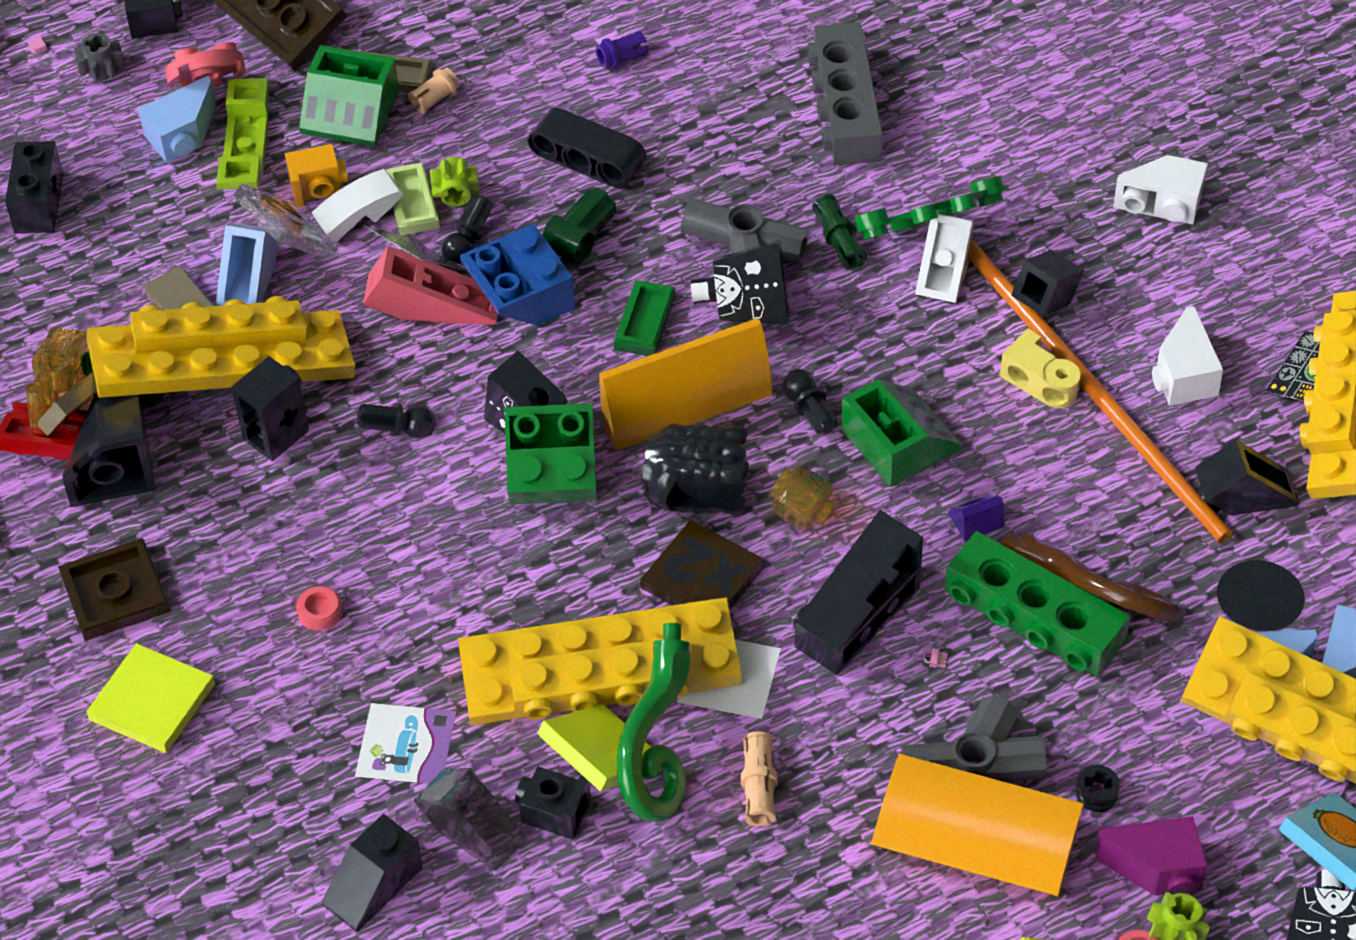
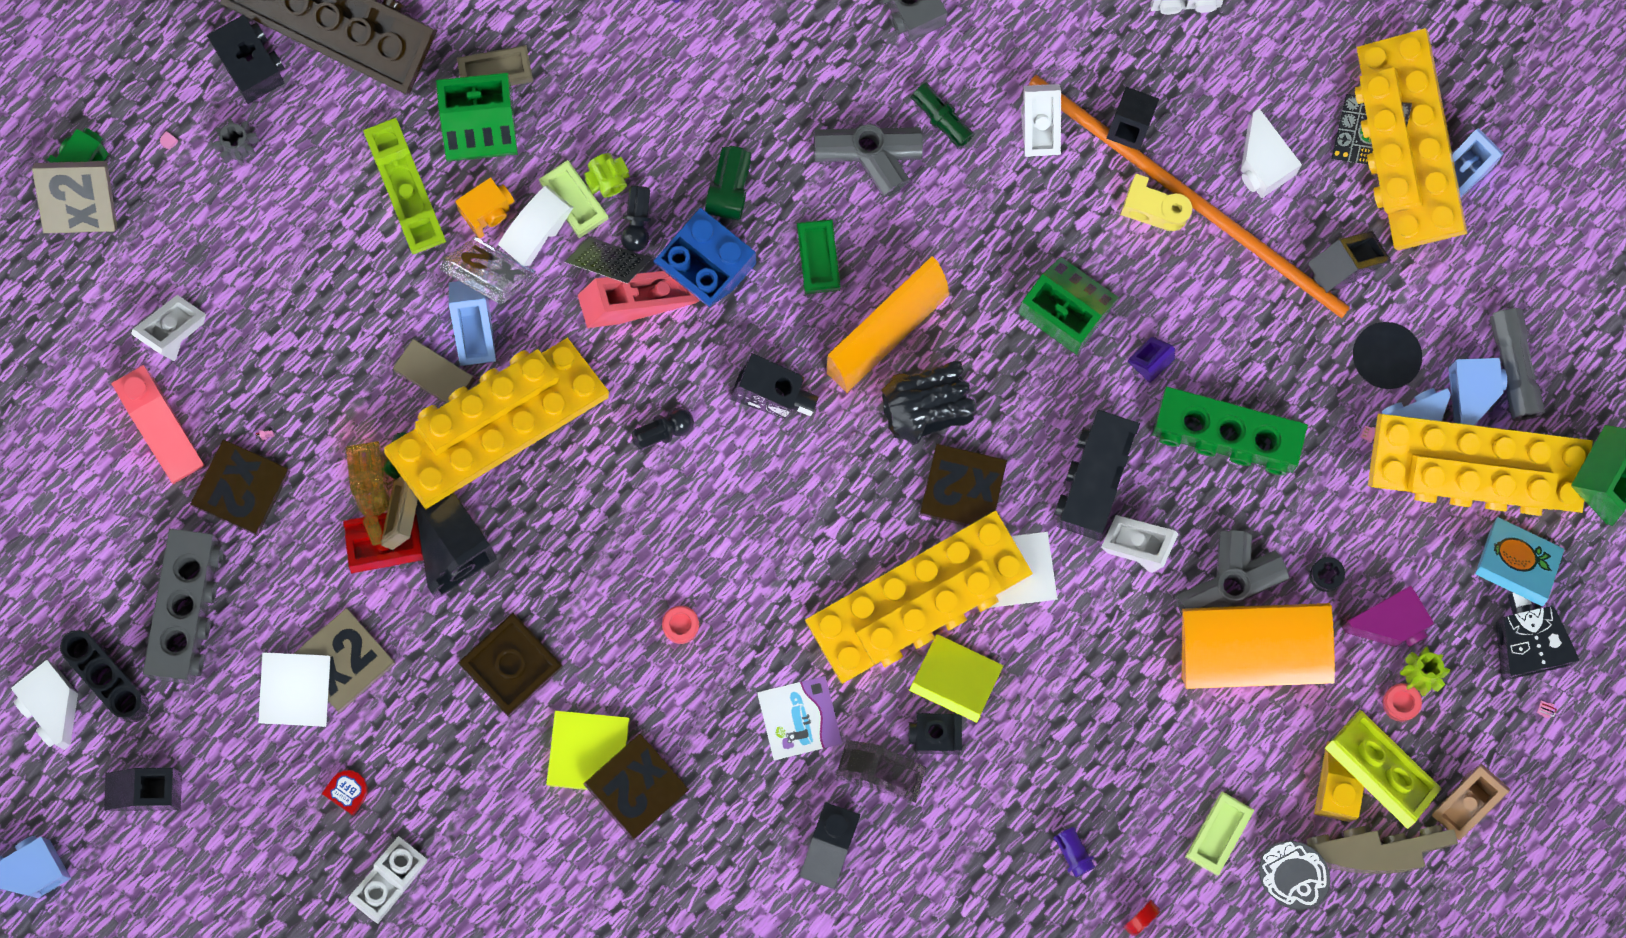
camera: 25 degrees left, 25 degrees up
(34, 187) = (252, 302): black brick -> none
(179, 119) = (340, 188): light blue slope -> none
(182, 743) = (636, 786): none -> dark brown tile
(214, 63) = (349, 126): coral plate -> none
(270, 408) = (566, 463): black brick -> none
(434, 90) = (544, 78): light nougat pin -> none
(550, 454) = (811, 432): green slope -> none
(587, 147) = (700, 99): black beam -> none
(667, 679) = (995, 681): green plant -> none
(747, 285) = (897, 207): black torso -> none
(759, 779) = (1079, 657): light nougat pin -> none
(802, 497) = (1016, 394): clear yellow head -> none
(809, 401) = (972, 285): black axle -> none
(884, 678) = (1140, 542): none -> white slope
(937, 658) = (1168, 500): bright pink piece -> none
(985, 191) = (1021, 77): green plant -> none
(1069, 568) = (1292, 403): reddish brown plant -> none

